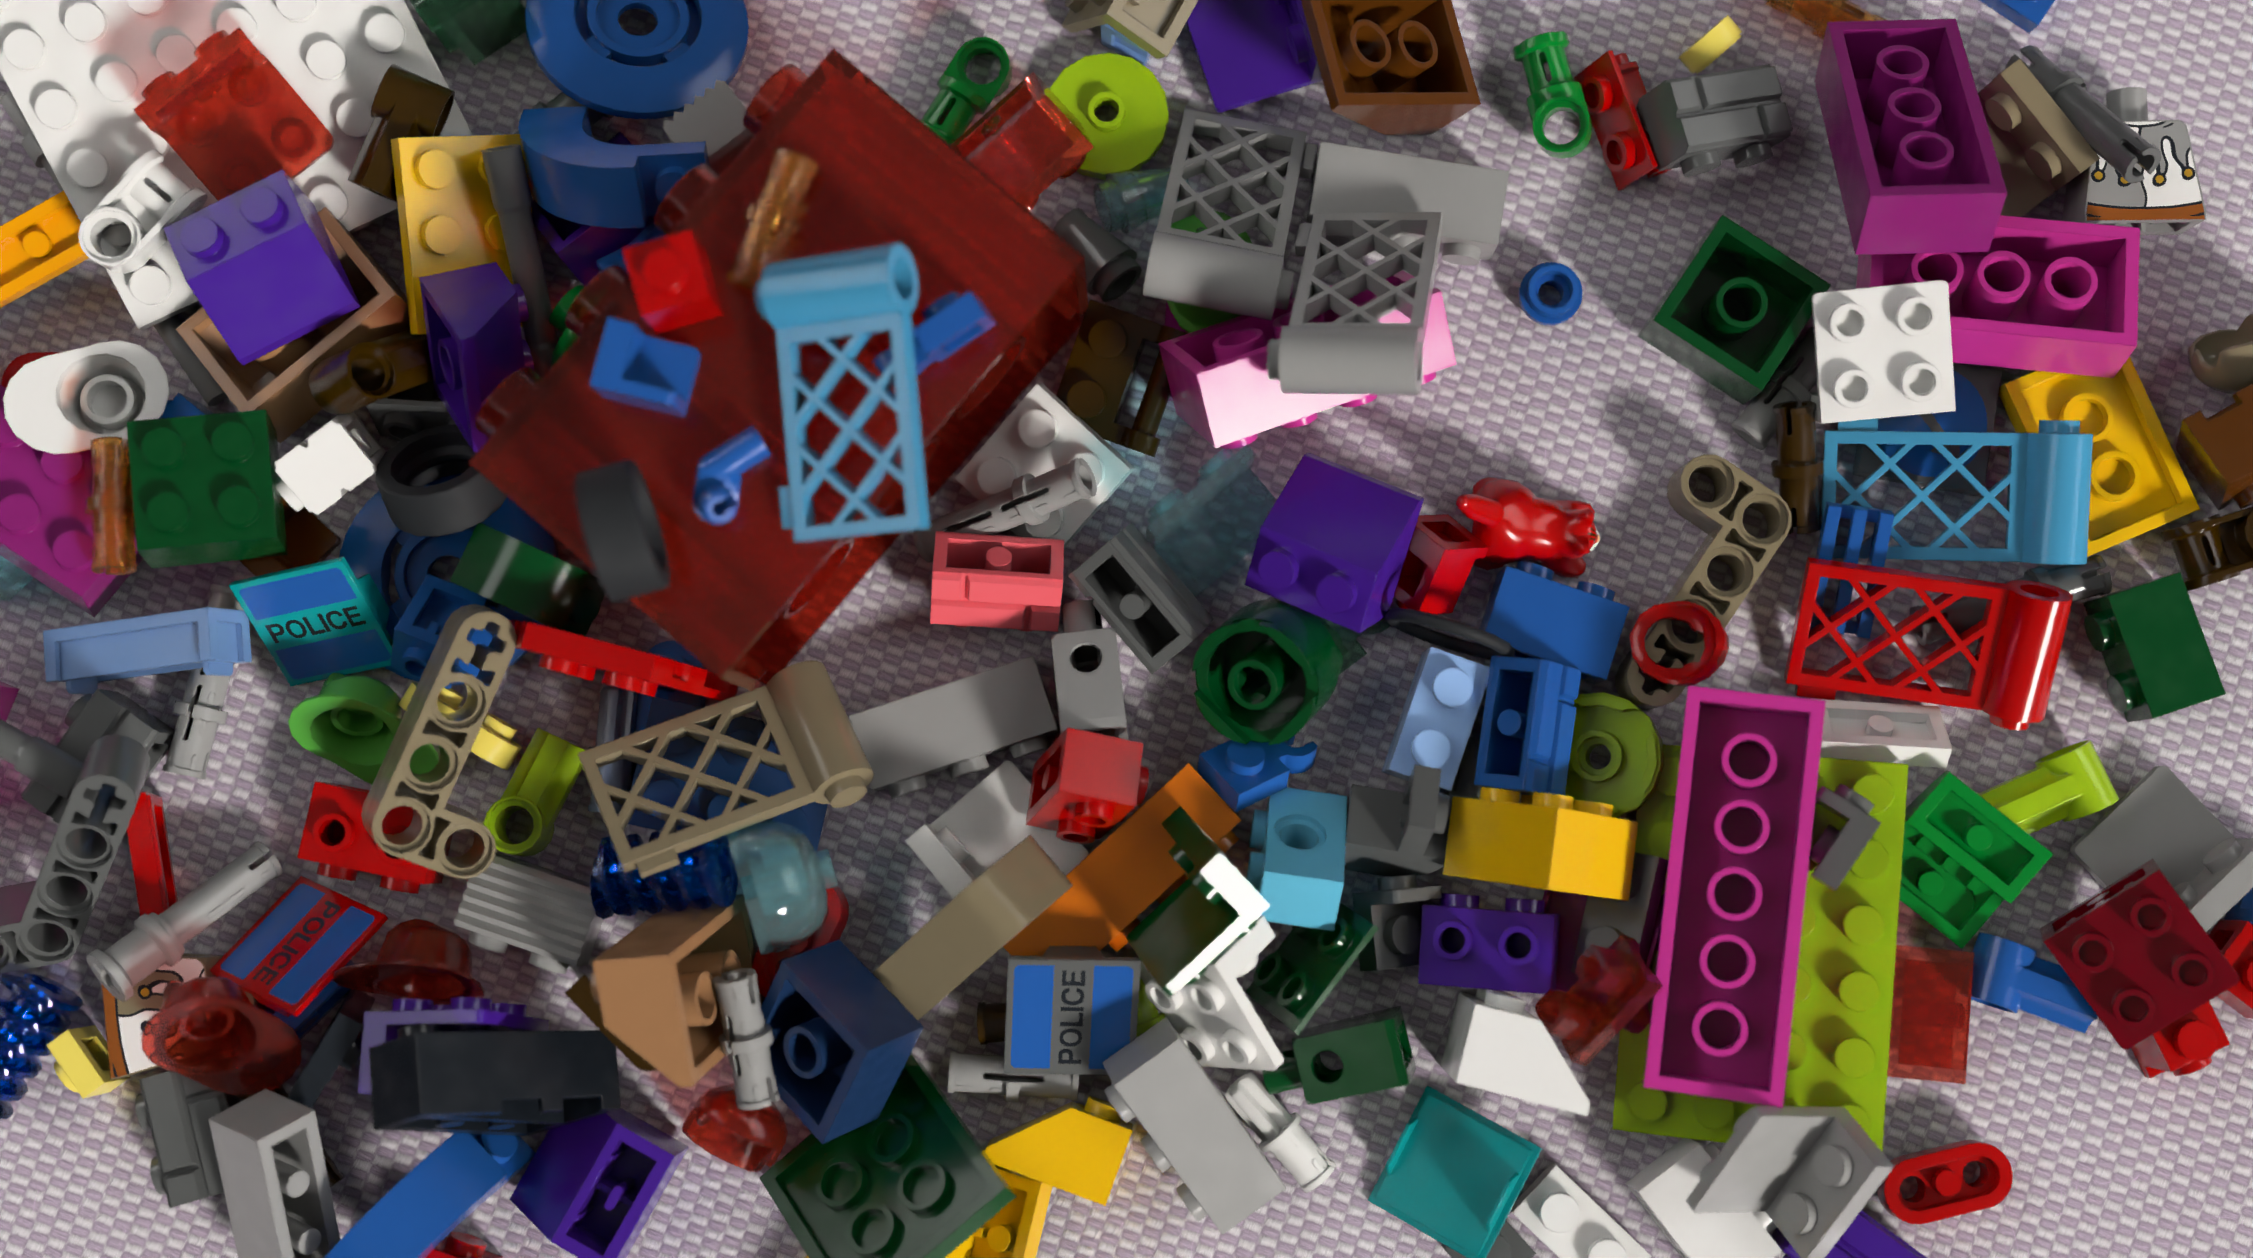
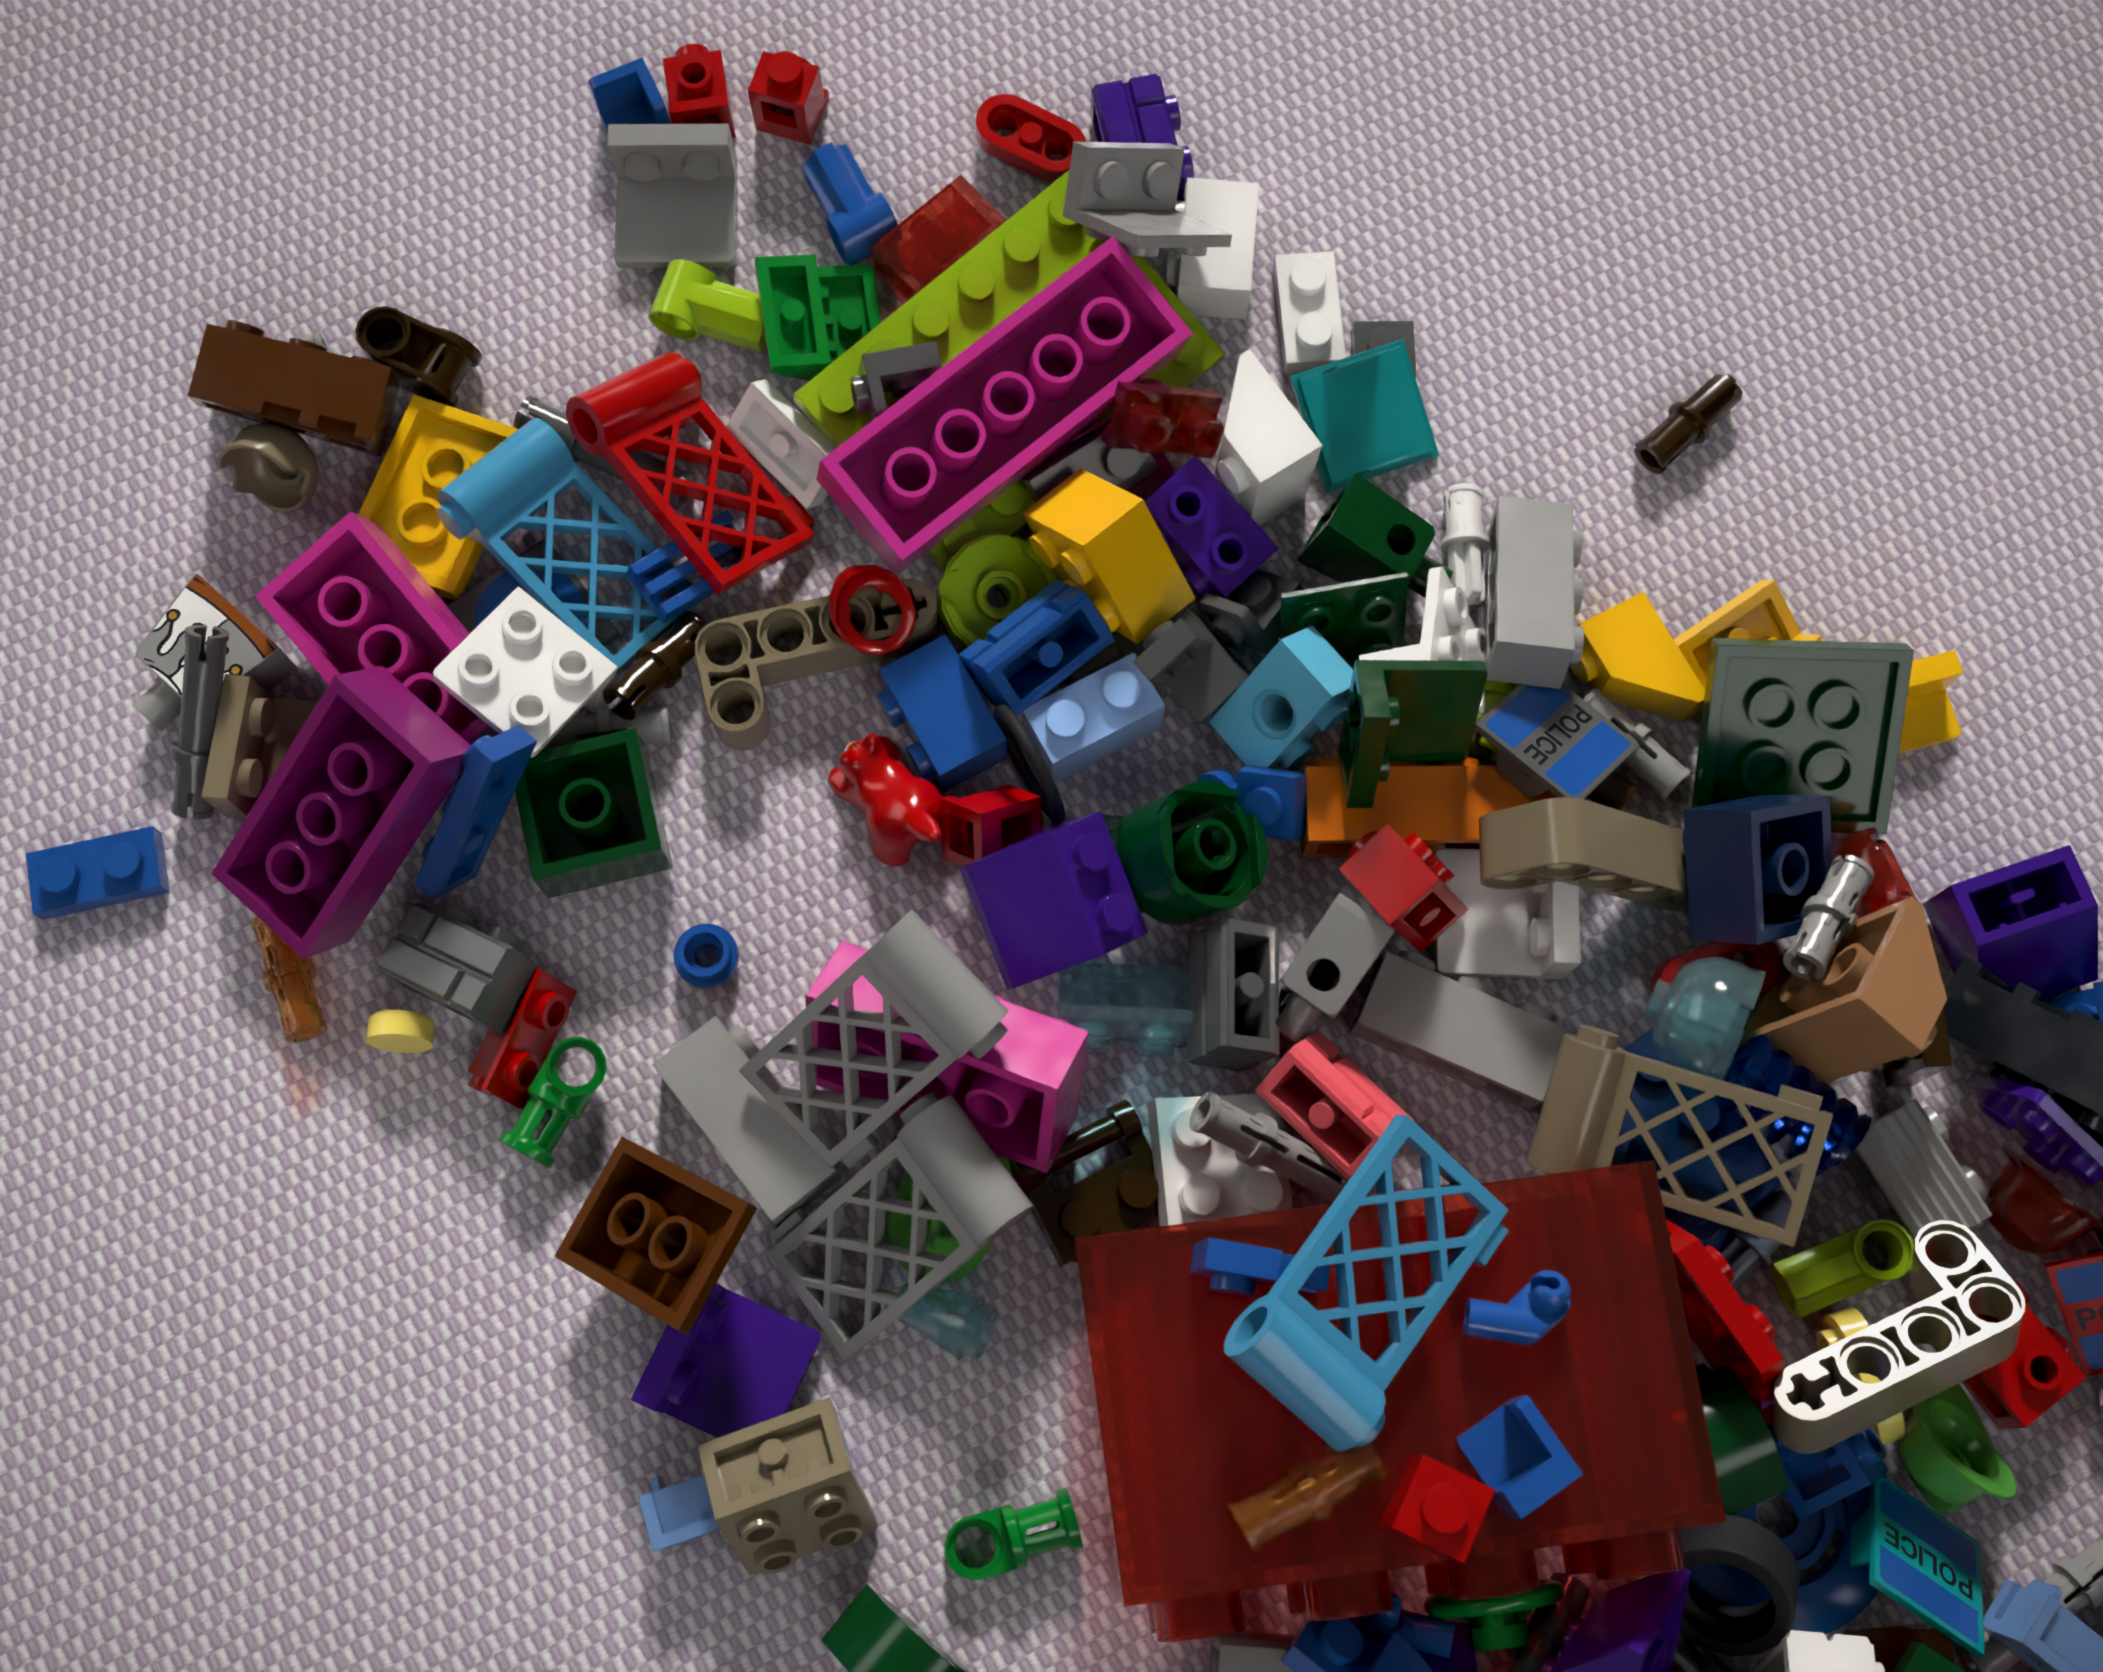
camera: 140 degrees left, 10 degrees down
(622, 530) = (1651, 1329): black tyre -> none
(1026, 141) = (1018, 1437): clear red brick -> none
(1108, 261) = (1024, 1301): dark grey cone -> none
(1141, 108) = (948, 1419): lime plate -> none
(1815, 225) = (474, 810): none -> blue plate
(2138, 955) = (764, 155): dark red bracket -> none
(2152, 648) = (543, 335): dark green brick -> none

